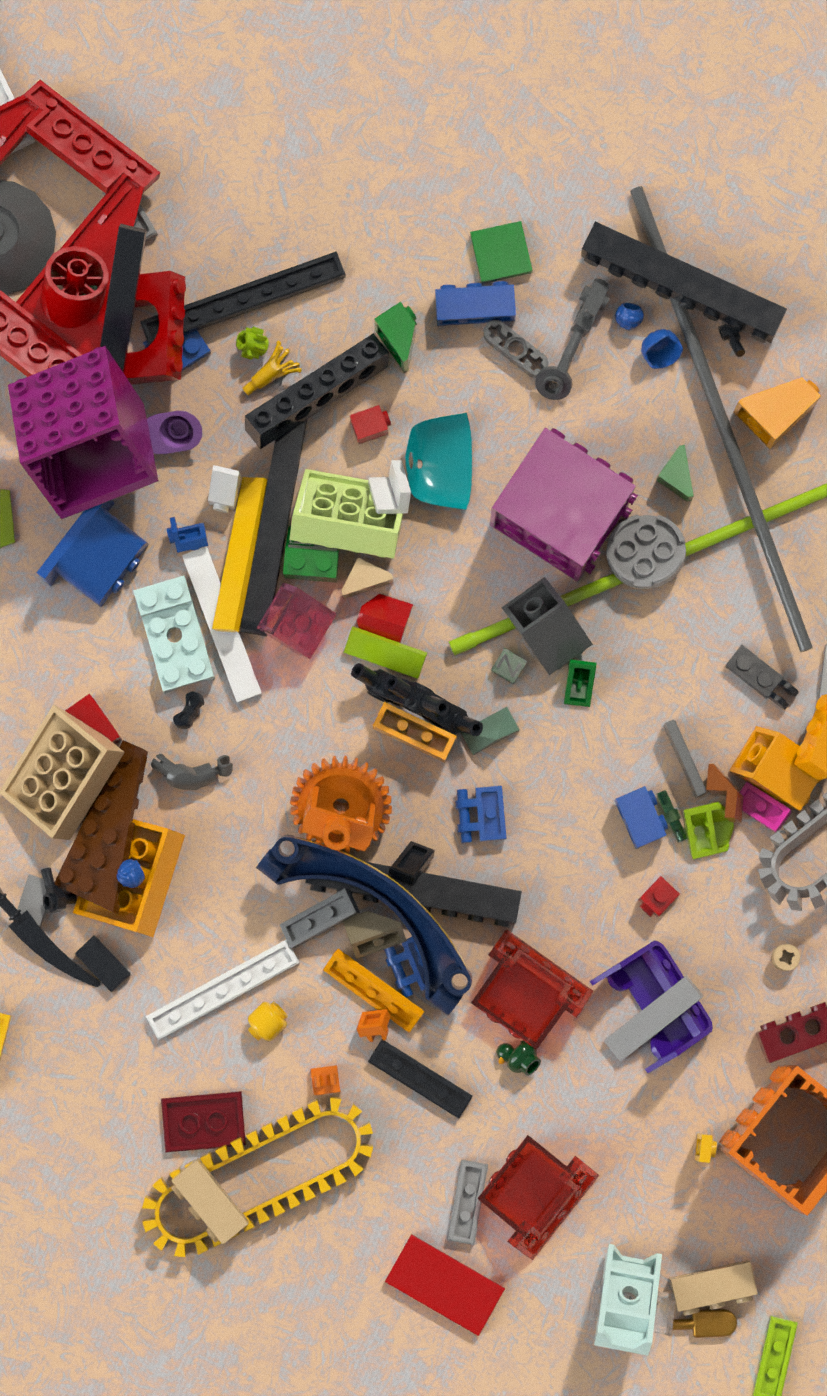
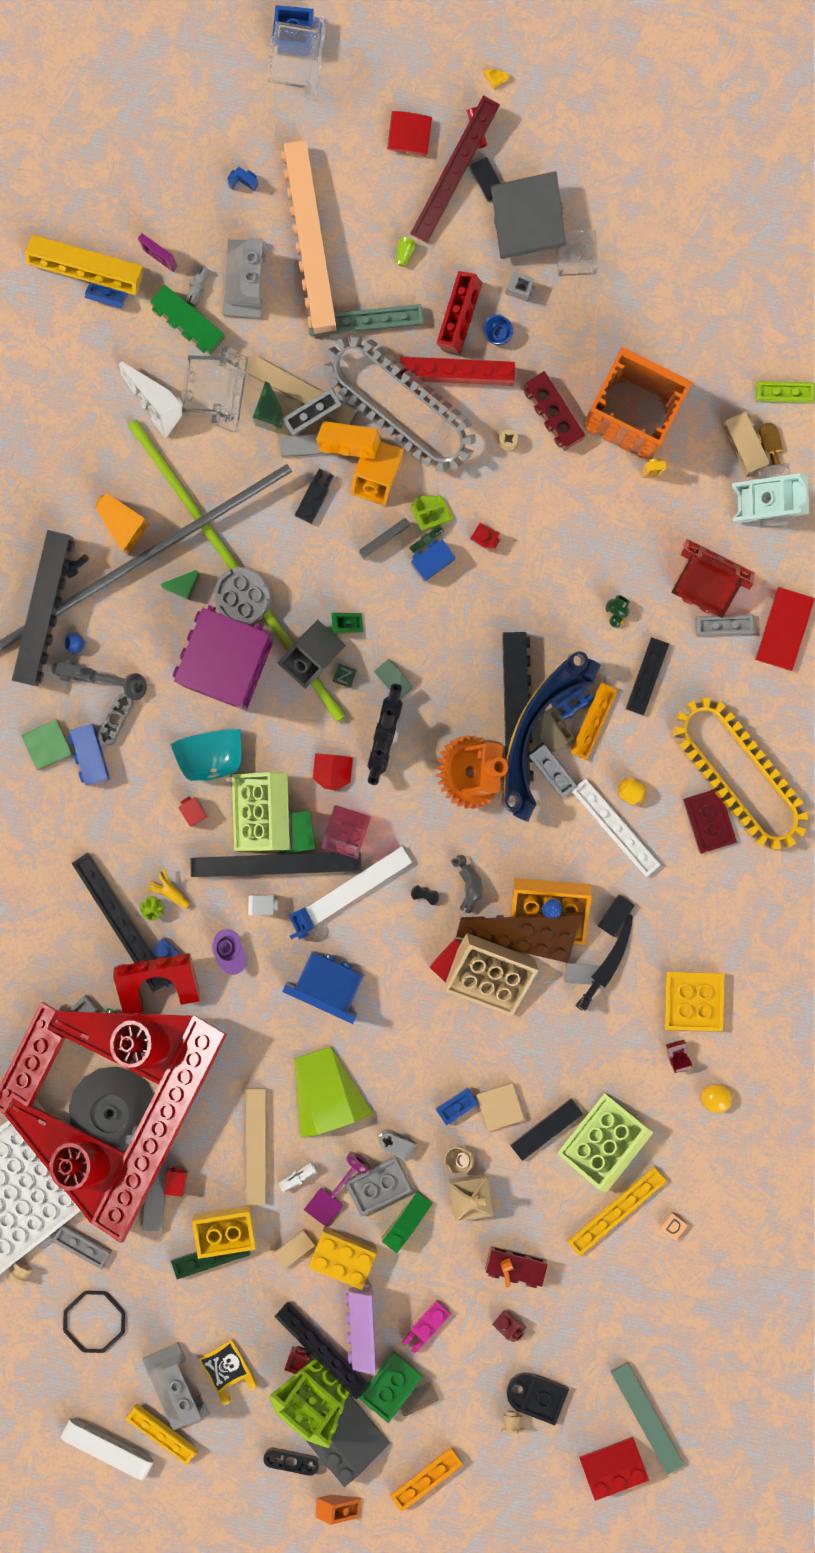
camera: 110 degrees left, 5 degrees up
(55, 899) = (578, 959): black piece -> none
(82, 433) = (246, 1013): magenta piece -> none
(123, 292) = (160, 1006): black tile -> none
(169, 607) = (355, 927): light aqua piece -> none
(209, 1202) = (767, 802): tan brick -> none
(240, 555) = (306, 882): yellow tile -> none
(316, 391) = (177, 853): black brick -> none
(325, 1080) = (662, 742): orange tile -> none
(364, 578) = (303, 790): tan slope -> none
(373, 1024) = (617, 716): orange tile -> none
(385, 652) = (354, 765): lime tile -> none
(391, 493) = (239, 785): white panel -> none
(397, 333) = (122, 805): green slope -> none
(411, 862) = (500, 713): black tile -> none
(414, 732) = (407, 731): light orange brick -> none
(489, 810) = (451, 667): blue plate -> none
(528, 991) = (571, 612): clear red windscreen -> none
(647, 977) = (558, 516): dark purple windscreen -> none
(653, 1018) = (571, 522): light grey tile -> none
(661, 348) = (93, 615): blue hair -> none
(720, 785) = (397, 510): dark orange slope -> none
(764, 808) = (407, 477): dark pink plate -> none

